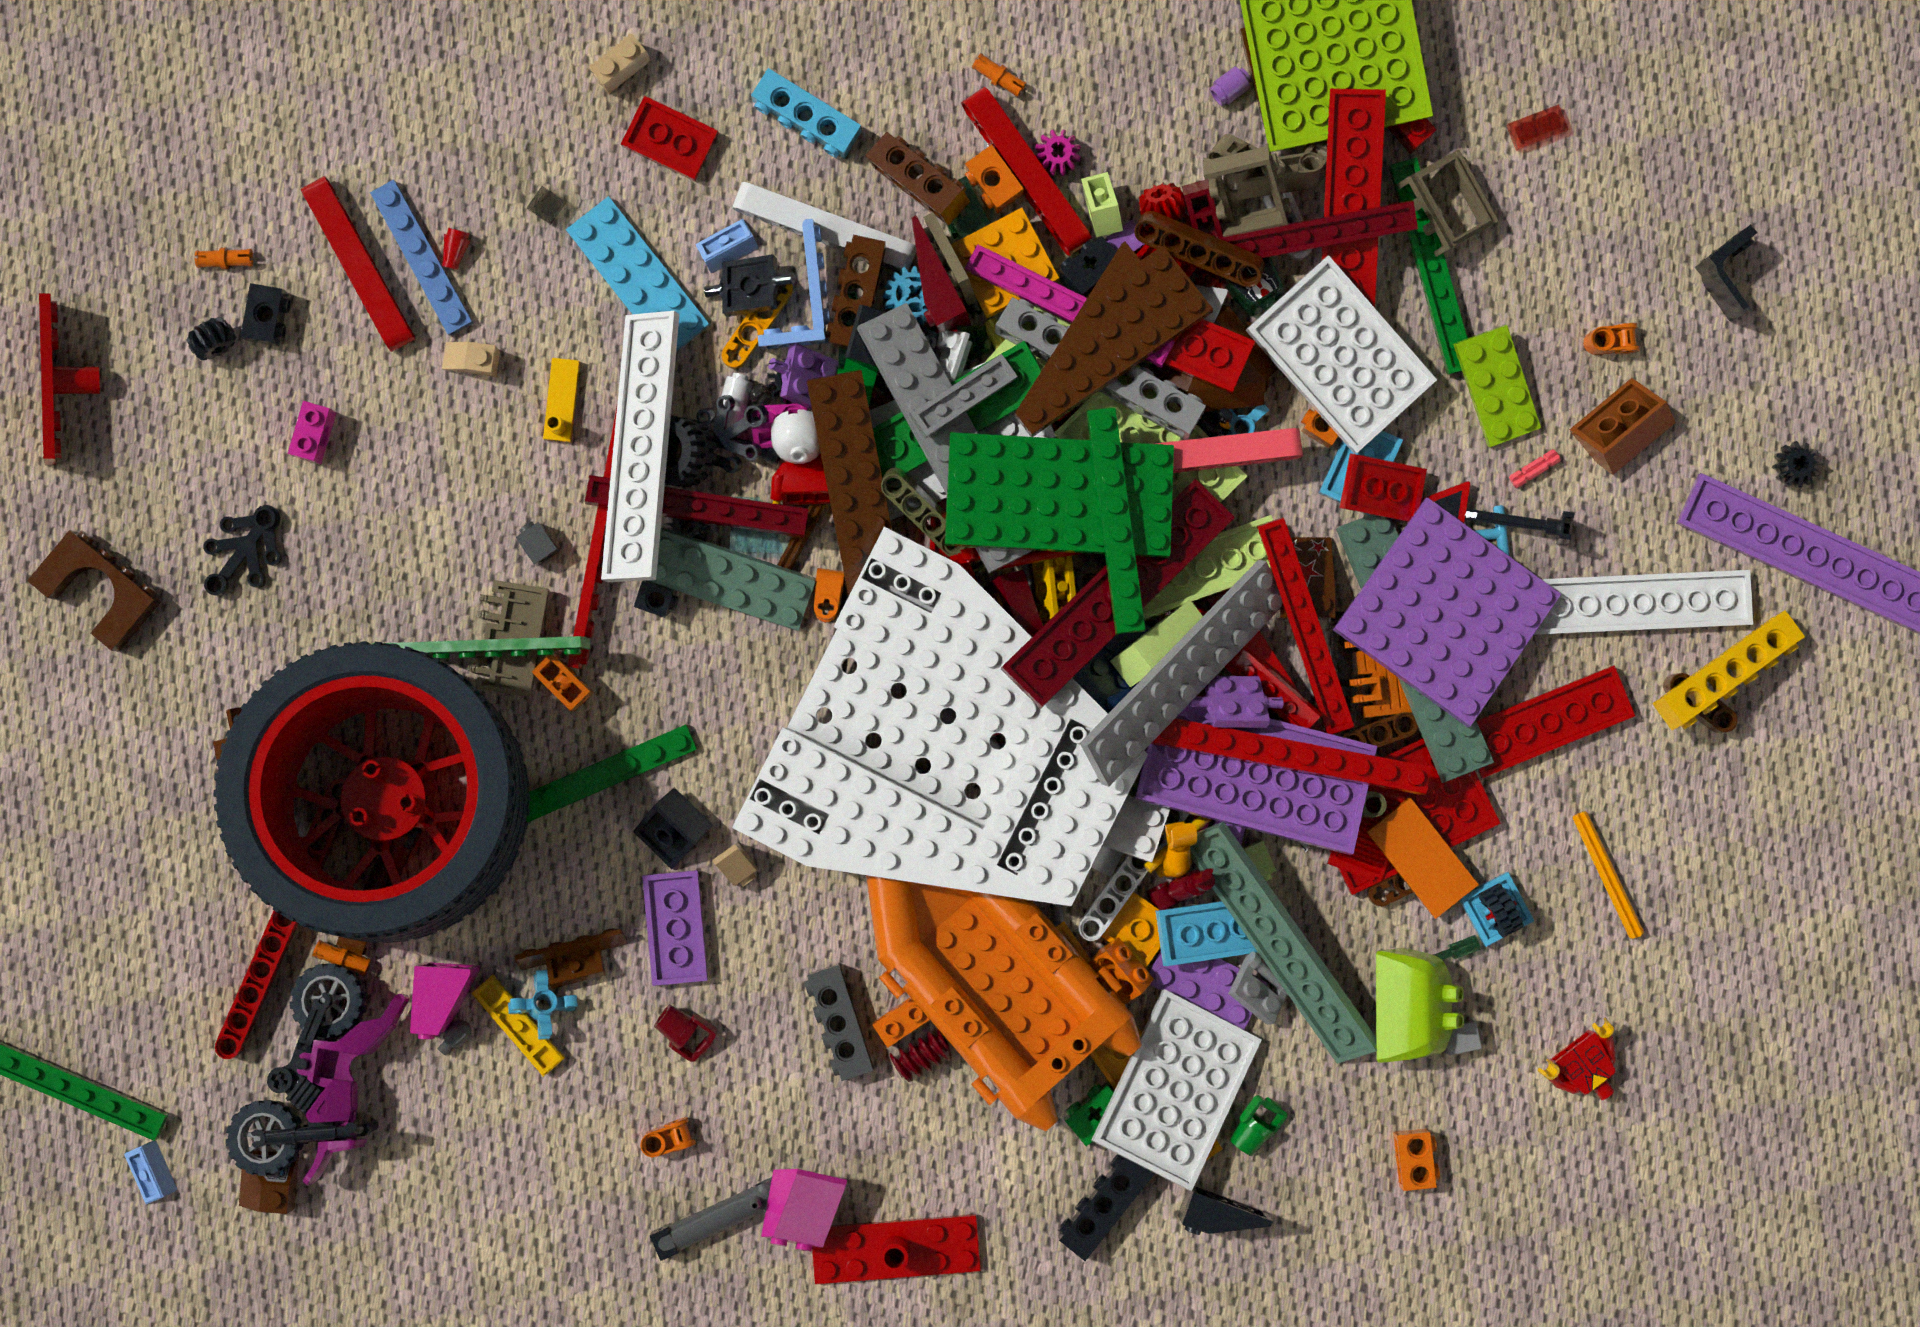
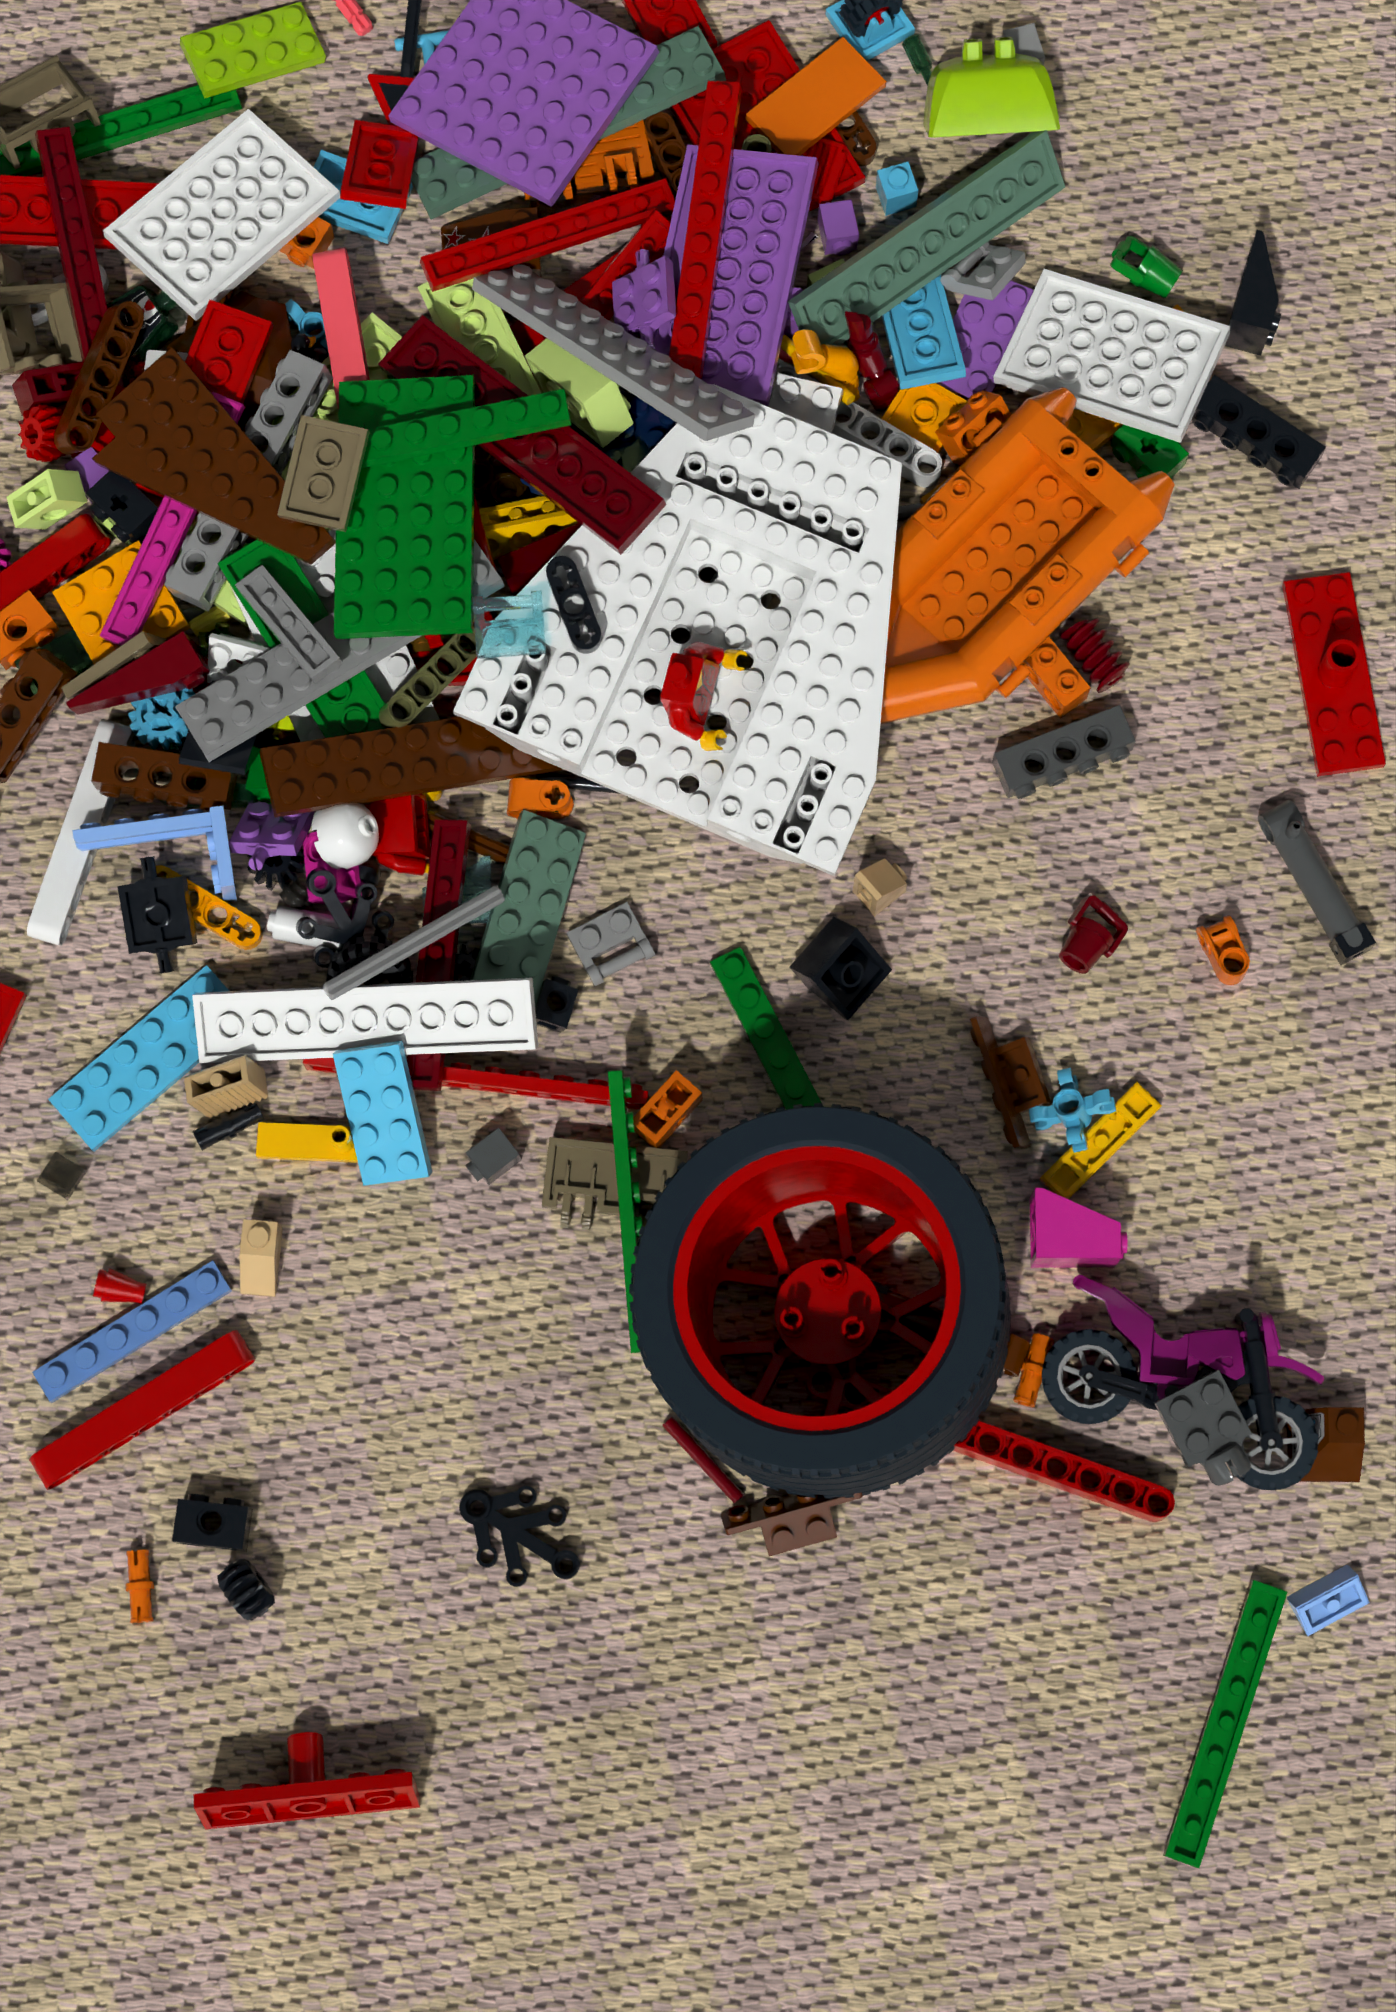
camera: 90 degrees left, 10 degrees down
(131, 602) = (535, 1747): reddish brown arch -> none
(271, 1089) = (1207, 1427): none -> dark grey plate
(312, 432) = (363, 1451): dark pink brick -> none
(455, 1036) = (1120, 1213): dark grey cylinder -> none
(571, 457) = (382, 1113): none -> medium azure plate
(577, 336) = (228, 1125): none -> black pin
(603, 335) = (226, 1086): none -> tan brick
(675, 927) = (963, 958): medium lavender plate -> none
(699, 487) = (413, 943): none -> light grey axle
(714, 641) = (606, 934): none -> light grey plate
(727, 245) = (107, 951): light blue slope -> none
(801, 1208) = (1293, 774): dark pink slope -> none
(893, 720) = (690, 688): none -> red torso
(939, 575) = (509, 636): none -> clear light blue plate
(985, 630) = (556, 585): none -> black beam
(1081, 428) = (323, 473): none -> dark tan plate
(1307, 869) = (838, 227): none -> medium lavender brick
(1340, 921) = (896, 188): none -> medium azure brick
(1408, 1160) = (1172, 100): orange brick -> none

